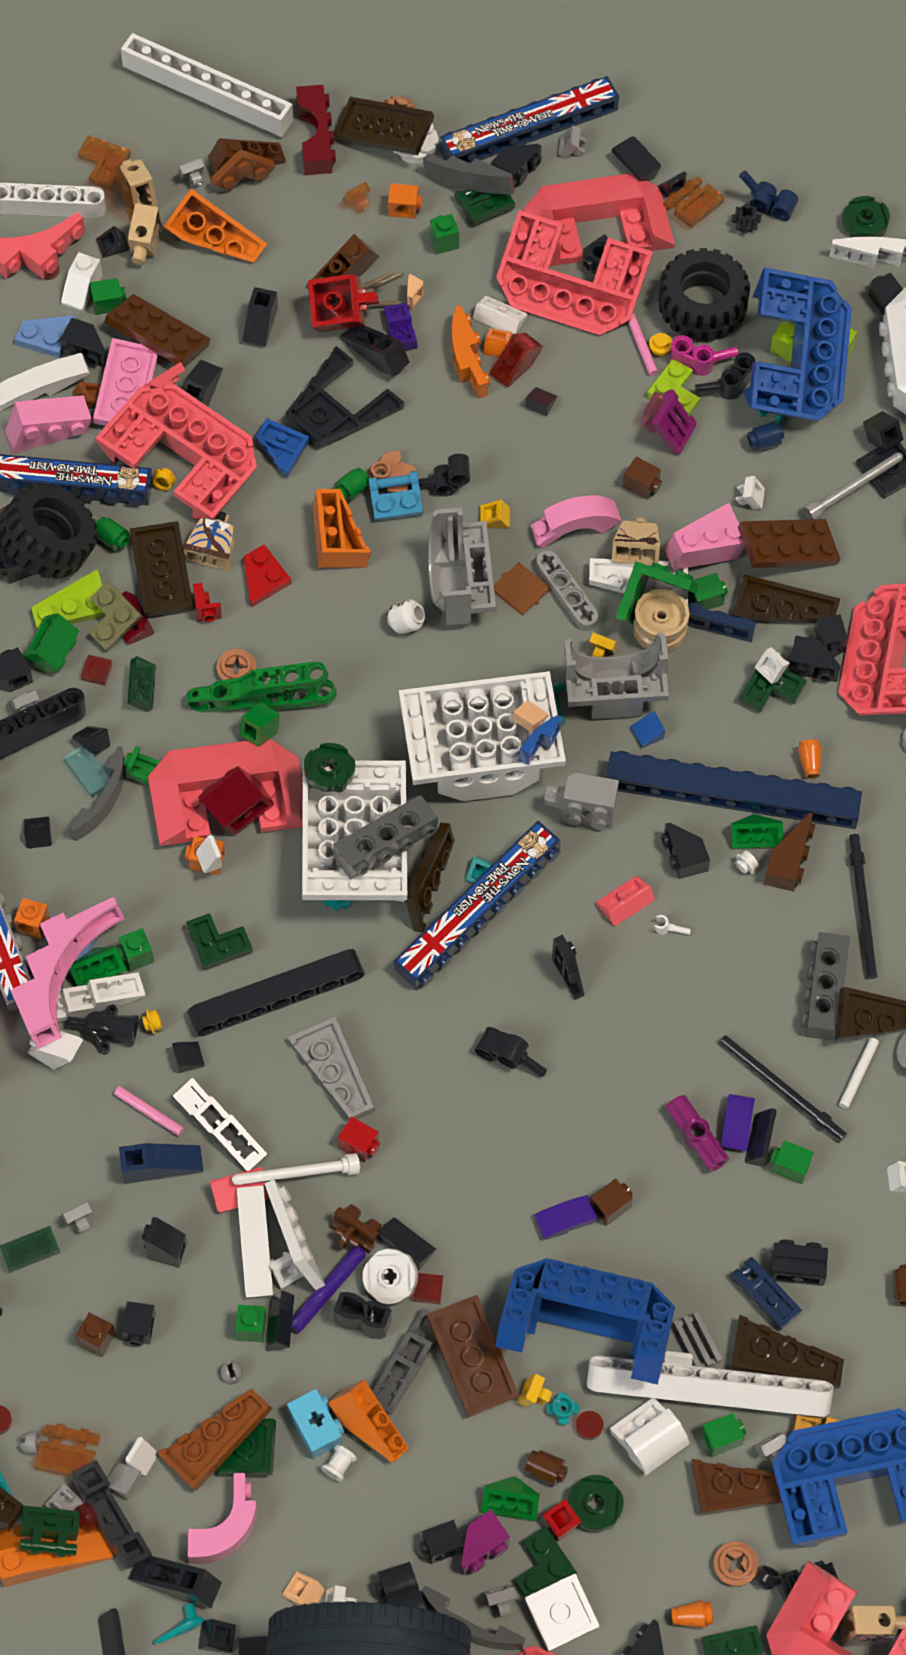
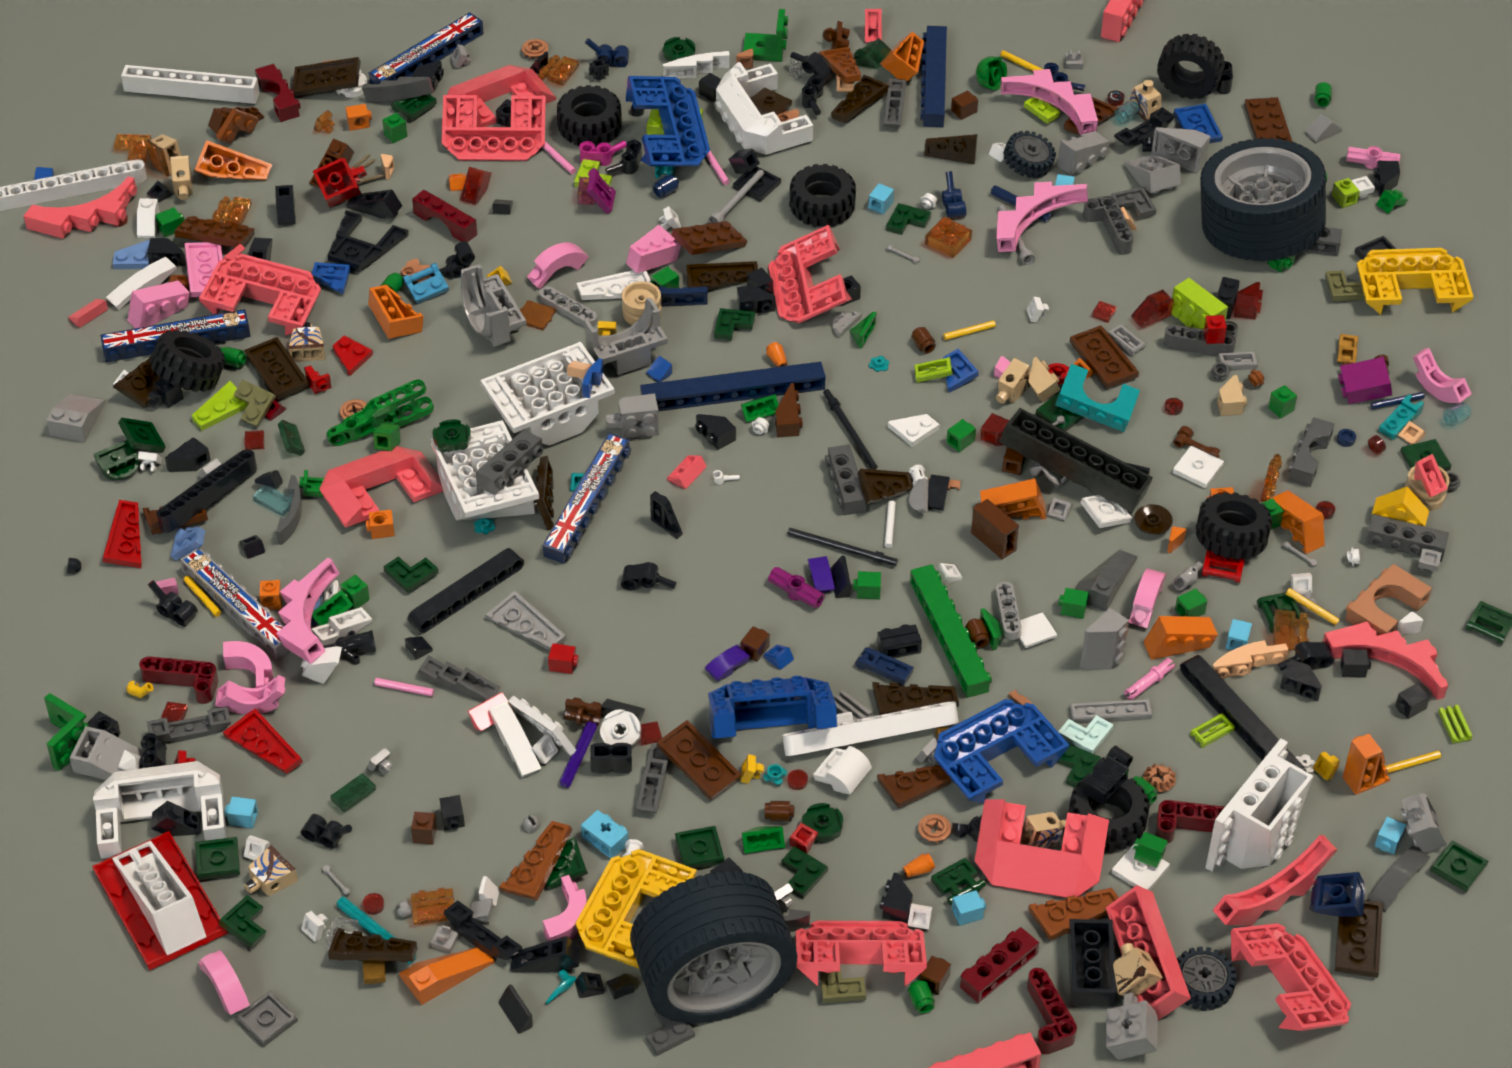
camera: 20 degrees left, 15 degrees down
(49, 1524) = (442, 951): dark green plate -> none
(51, 643) = (216, 430): green piece -> none
(87, 1517) = (464, 939): clear red tile -> none
(110, 937) = (331, 589): none -> white slope
(152, 1021) = (384, 632): yellow plate -> none
(159, 1160) = (423, 711): dark blue slope -> none
(163, 479) = (255, 320): yellow plate -> none
(164, 1242) = (450, 757): black slope -> none
(192, 172) = (199, 136): light grey tile -> none
(196, 306) = (236, 210): none -> clear orange plate
(209, 855) = (385, 517): white slope -> none
(236, 799) = (390, 481): dark red slope -> none
(250, 1323) = (533, 788): green brick -> none
(280, 1321) = (553, 781): black slope -> none
(292, 1527) = (616, 897): none -> yellow slope
(347, 1164) = (562, 676): white piece -> none
(365, 1417) = (639, 818): orange slope -> none
(400, 324) = (384, 182): dark purple slope -> none
(406, 616) = (463, 348): white head -> none
(426, 1485) = (699, 847): none -> dark green plate
(465, 353) = (438, 186): orange slope -> none
(470, 412) = (459, 223): none -> dark red arch
(483, 1539) = (757, 861): magenta slope -> none
(499, 315) = (451, 166): white slope -> none
(561, 1612) = (827, 893): white plate -> none
(636, 542) = (606, 265): tan torso -> none
(637, 159) = (509, 54): black slope -> none
(637, 1228) = (779, 656): none -> blue slope
(638, 581) = (629, 272): green bracket -> none
(642, 478) = (592, 229): reddish brown brick -> none
(660, 344) = (571, 154): yellow plate -> none
(681, 151) = (537, 44): none -> nougat gear
(723, 1434) = (892, 755): green brick -> none
(771, 665) = (728, 307): white tile -> none
(846, 427) = (717, 168): none -> bright pink bar
(871, 1270) = (950, 631): none -> green brick

